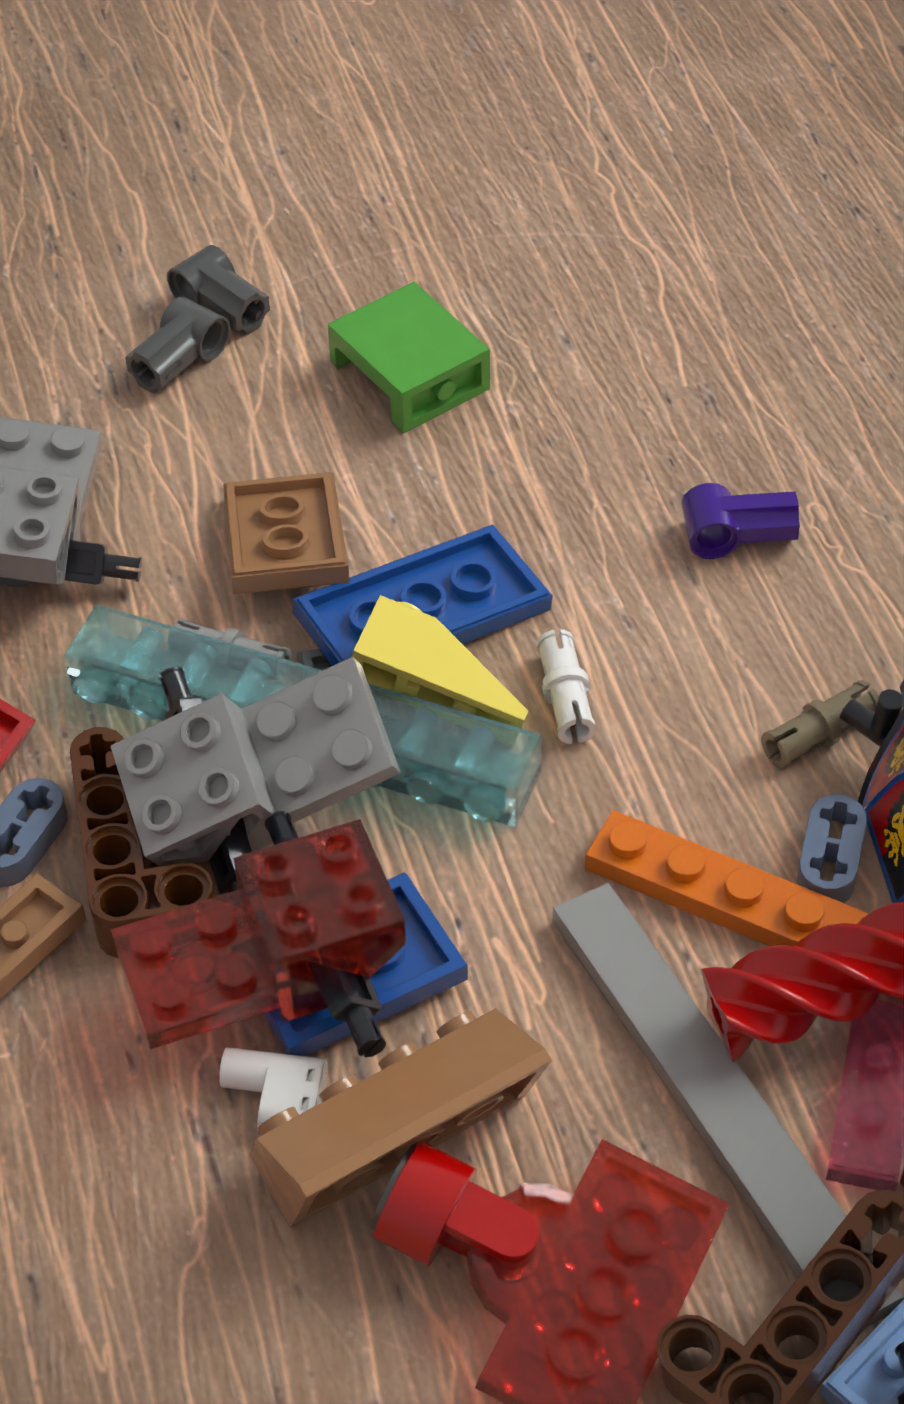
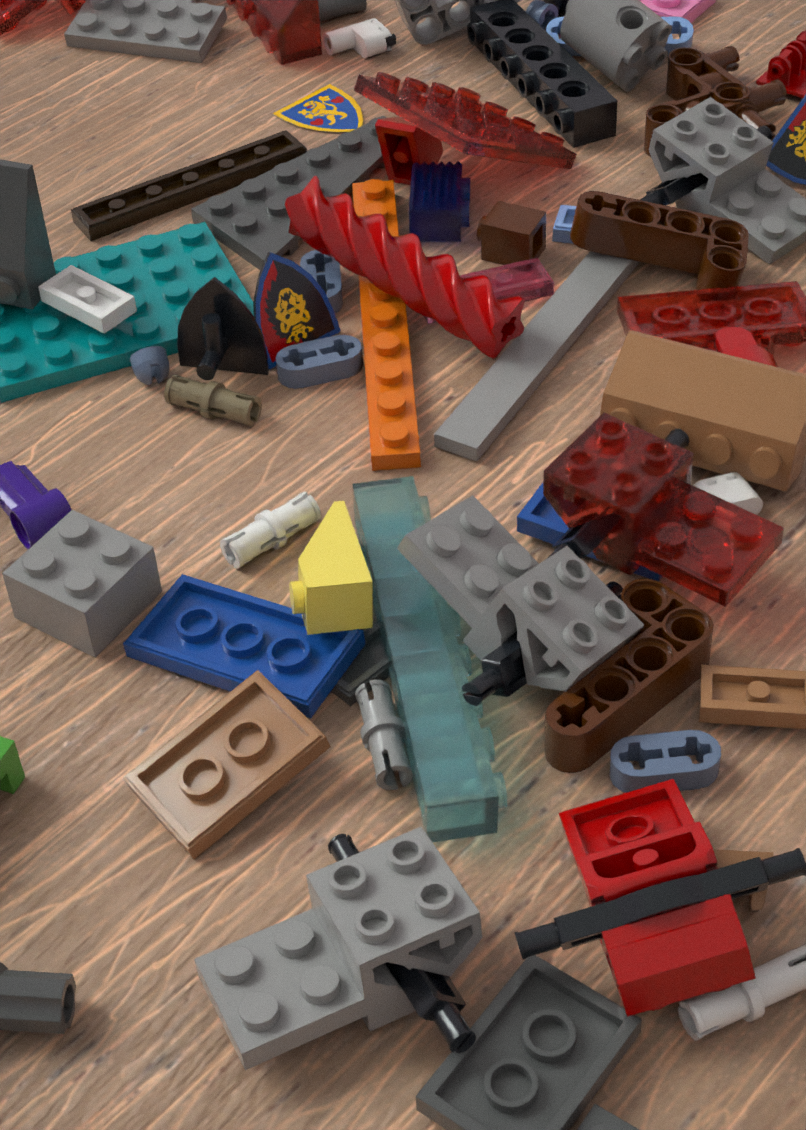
camera: 120 degrees left, 5 degrees down
(584, 512) = (83, 582): none -> light grey brick

